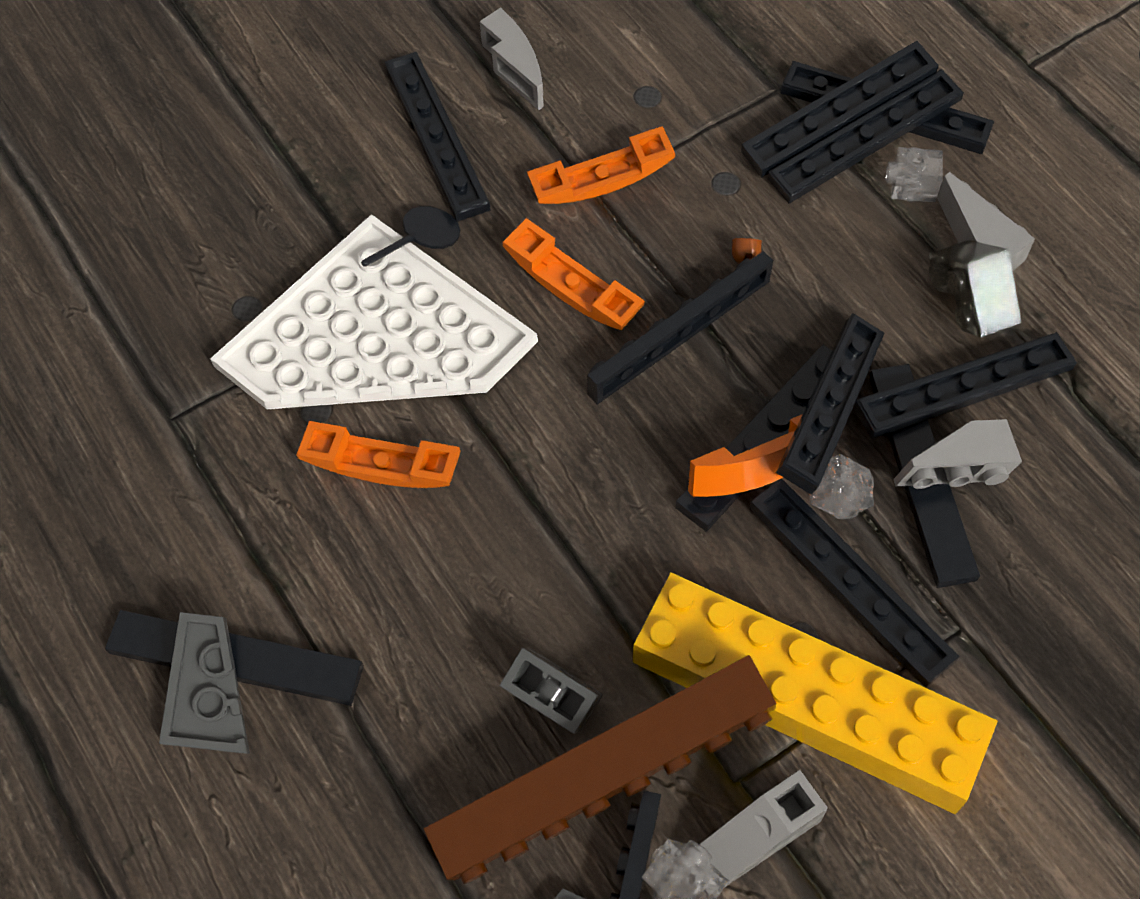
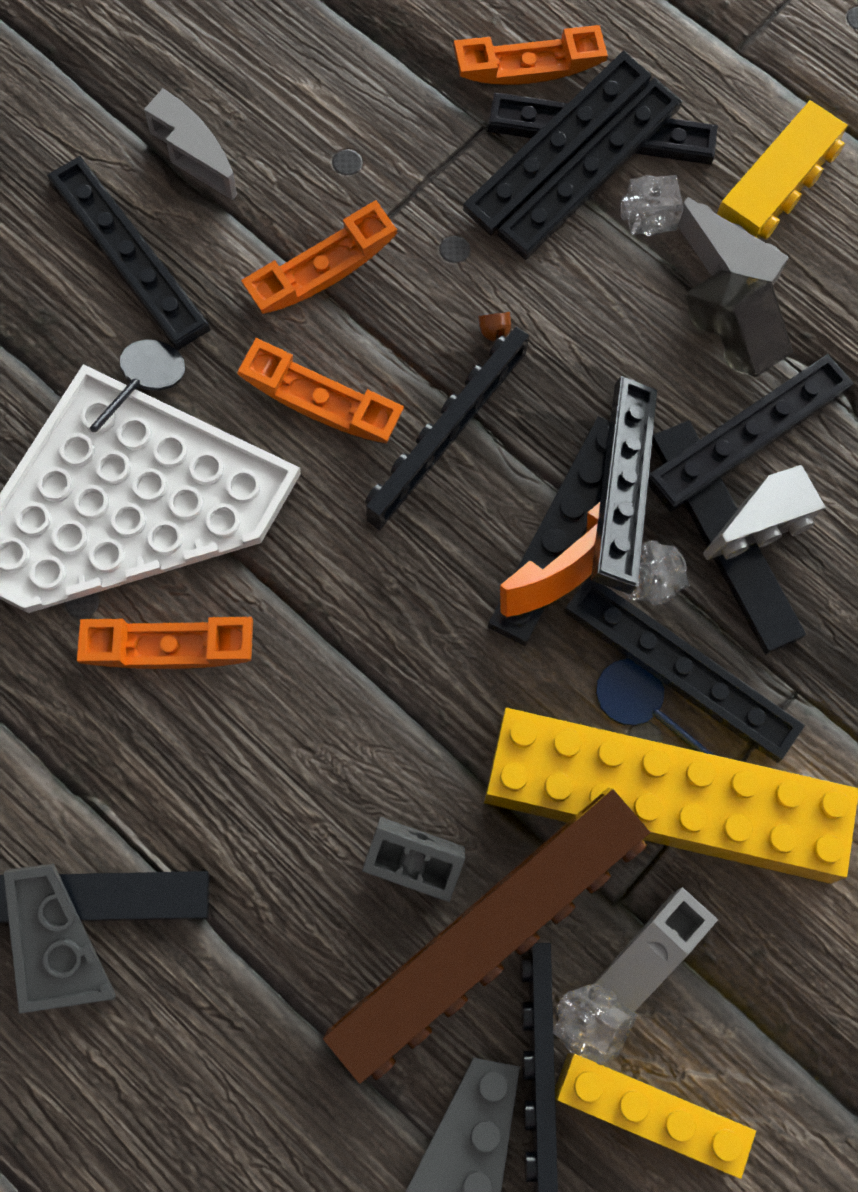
camera: 20 degrees left, 10 degrees up
(799, 599) = (634, 697): none -> dark blue piece
(832, 42) = (532, 61): none -> orange slope
(1048, 168) = (784, 170): none -> yellow brick

